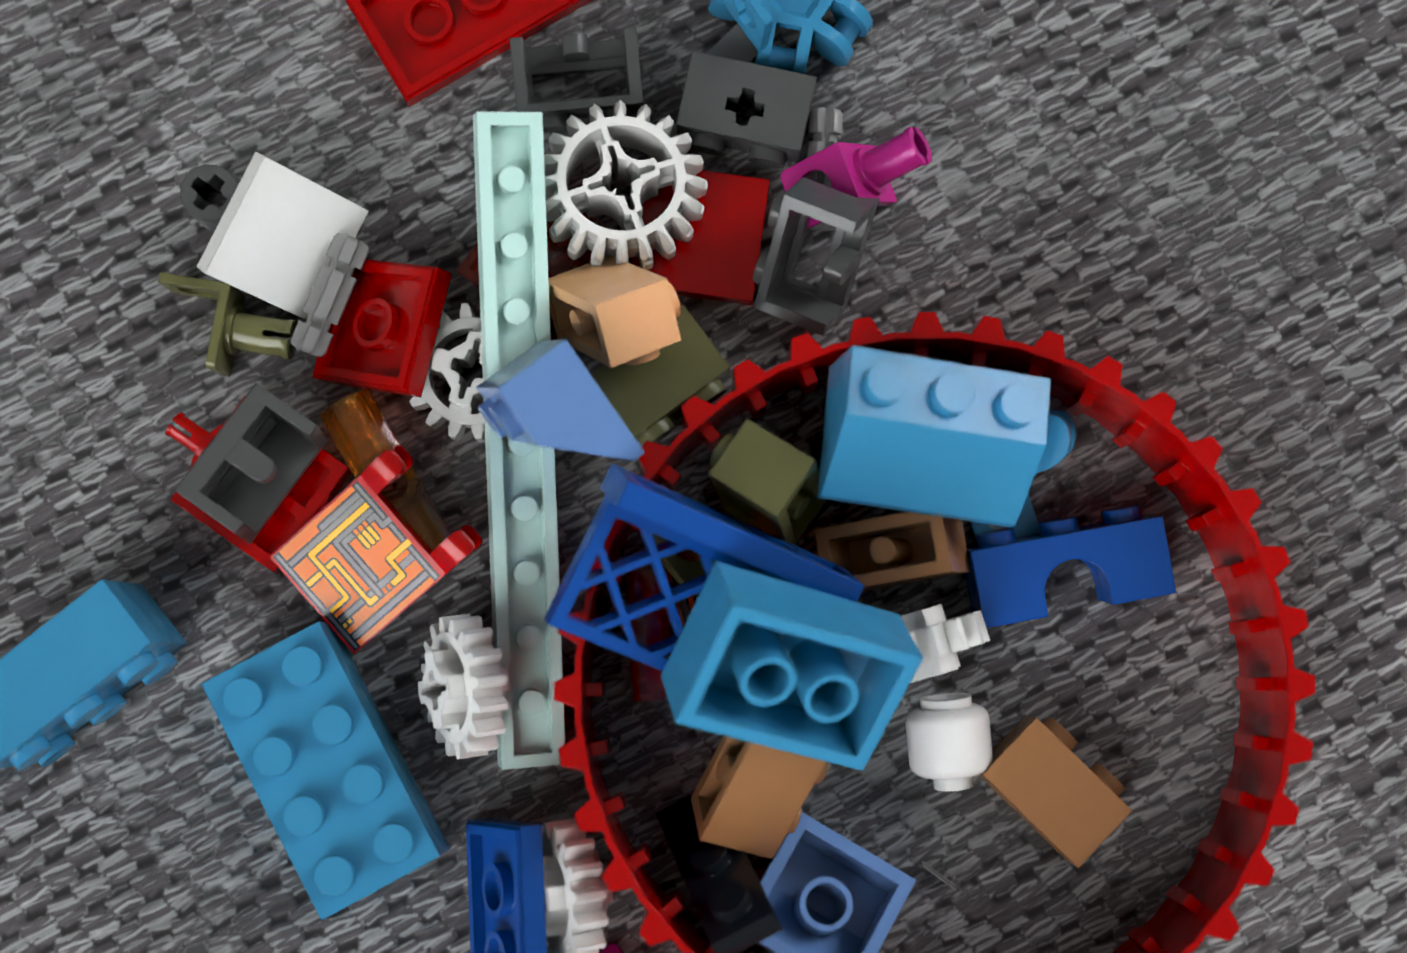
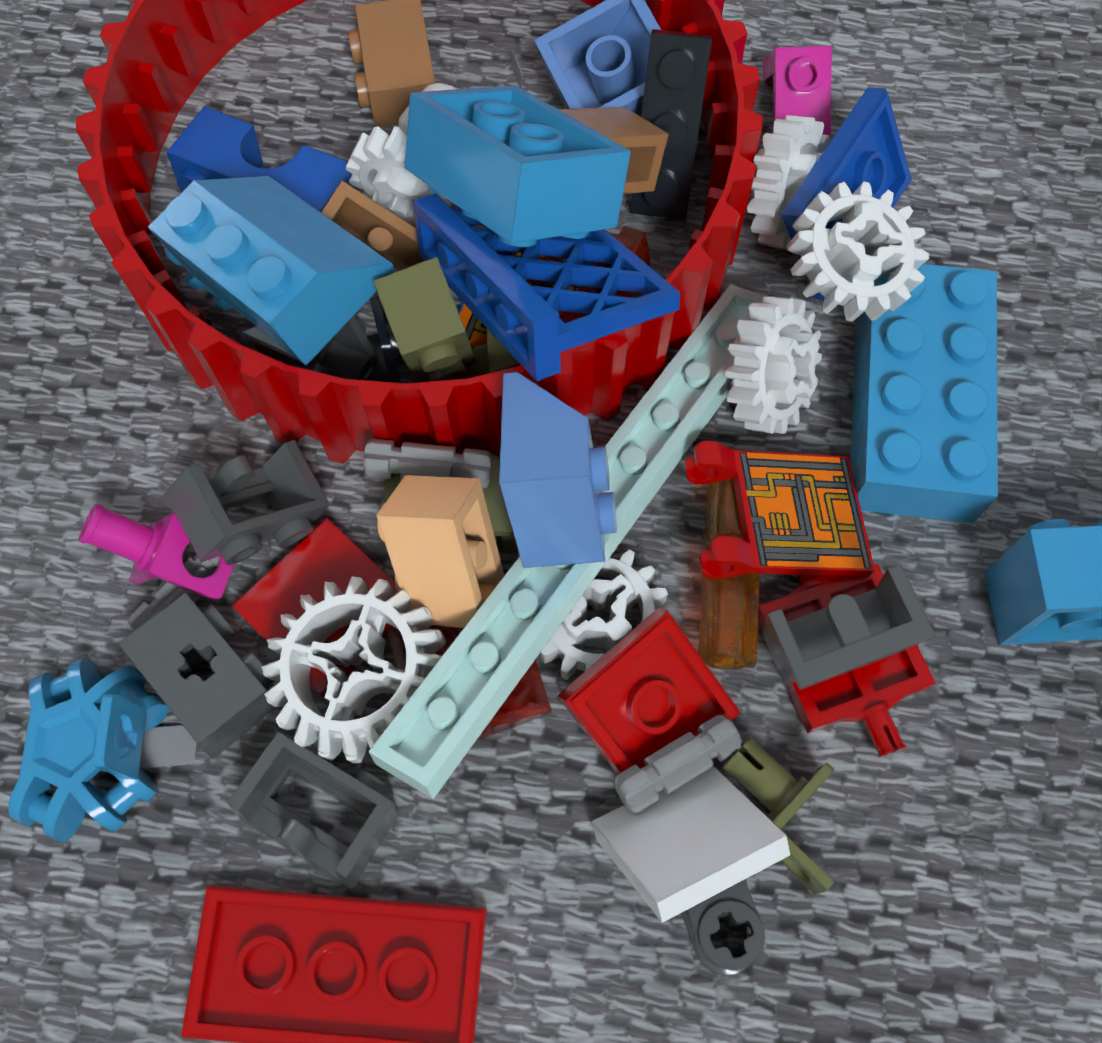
camera: 145 degrees left, 15 degrees down
(420, 809) = (856, 252): none -> white gear
(684, 381) = (420, 459): none -> light grey axle

